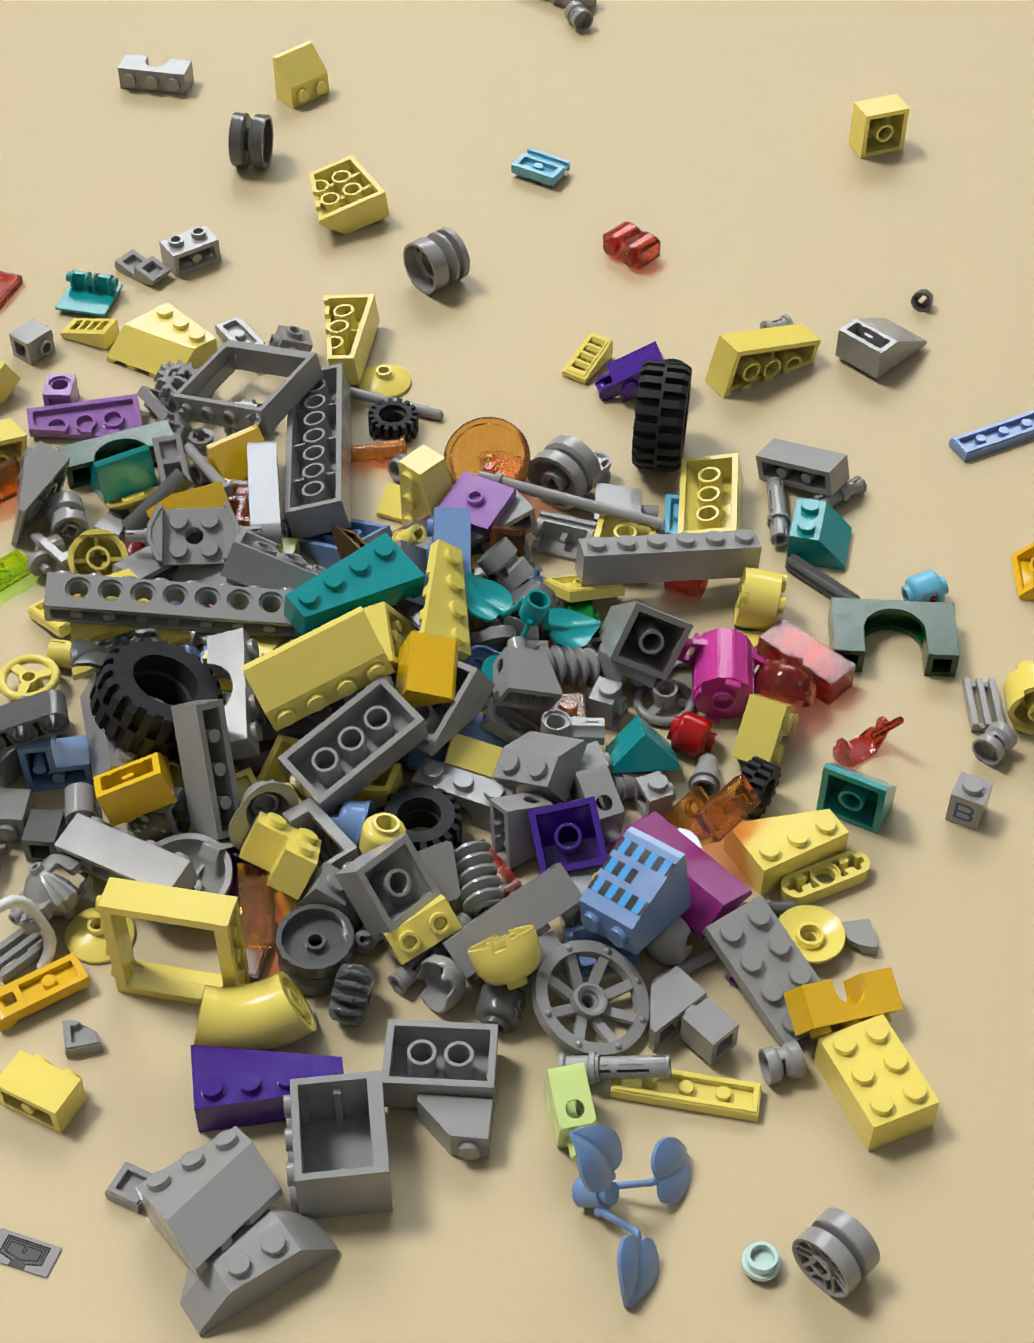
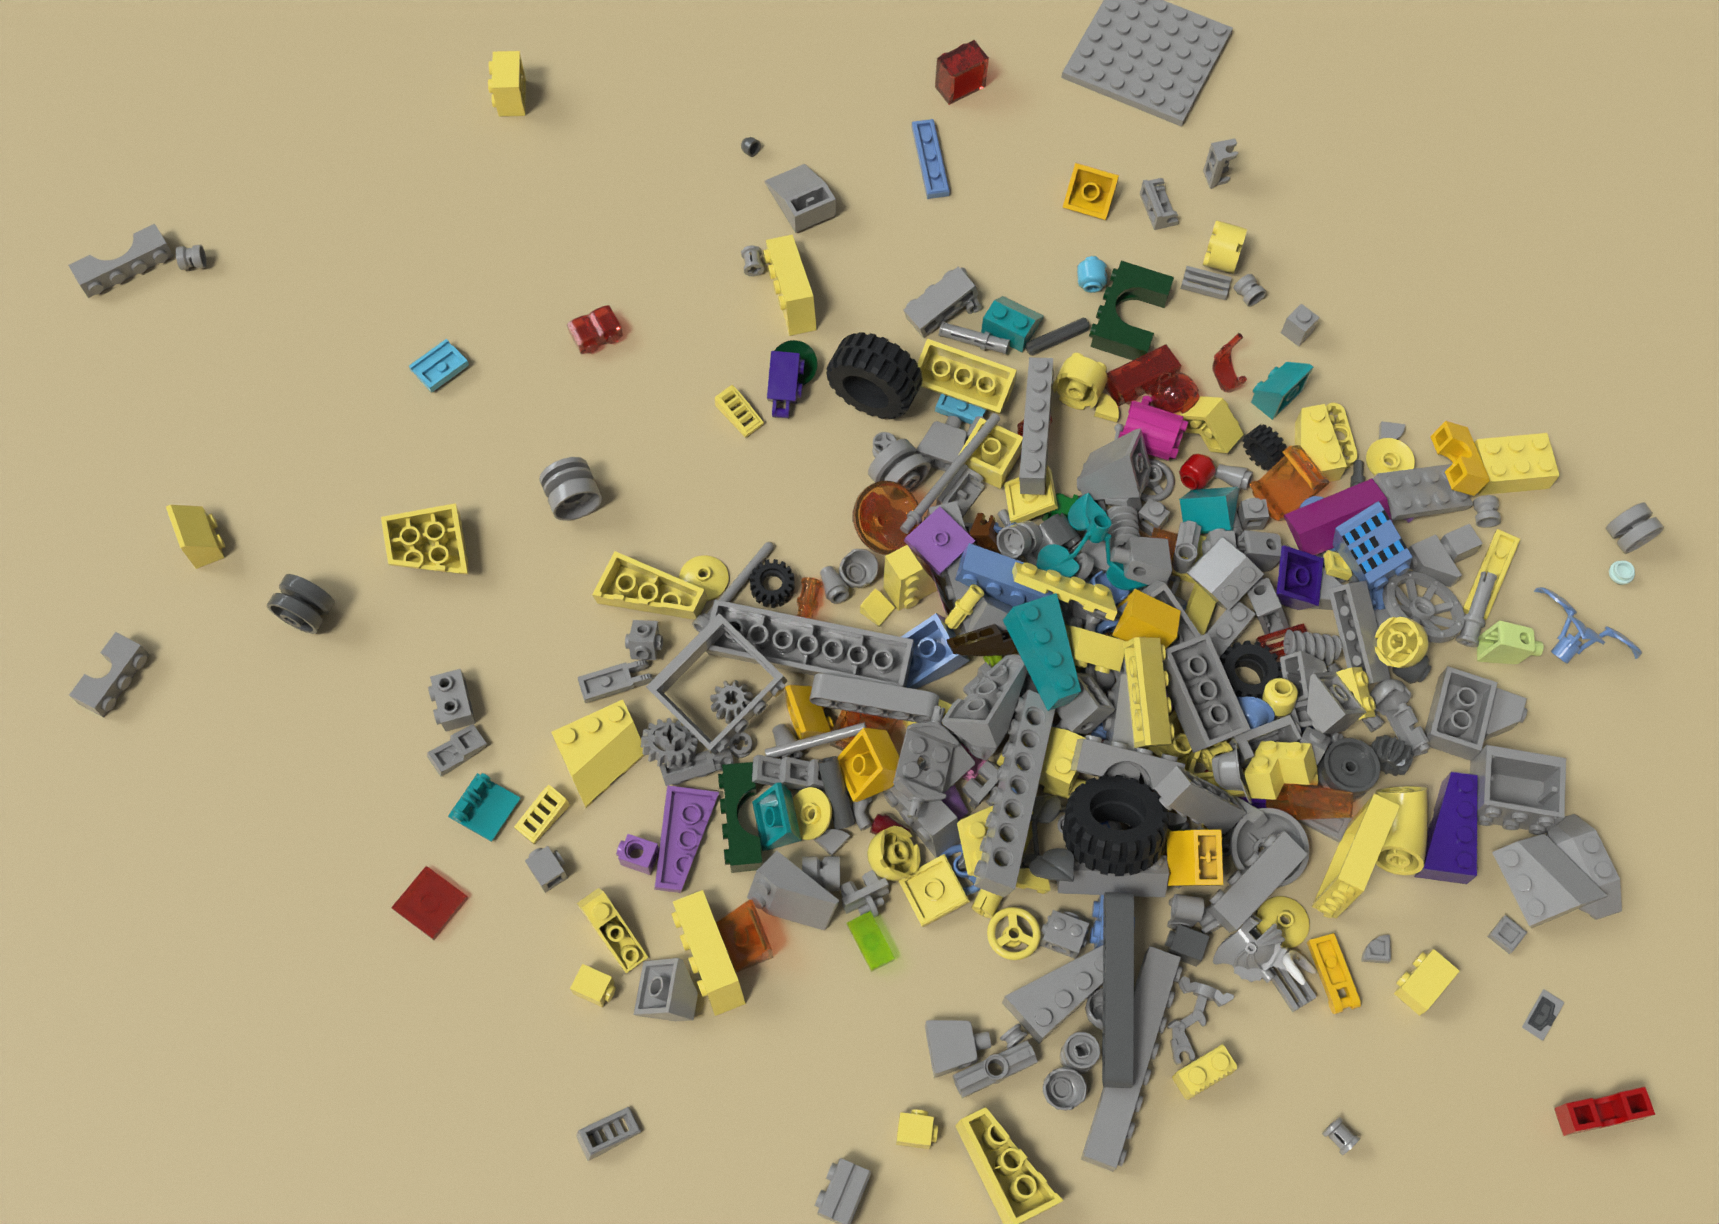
camera: 75 degrees left, 20 degrees up
(410, 1006) = (1402, 723): none -> light grey hinge

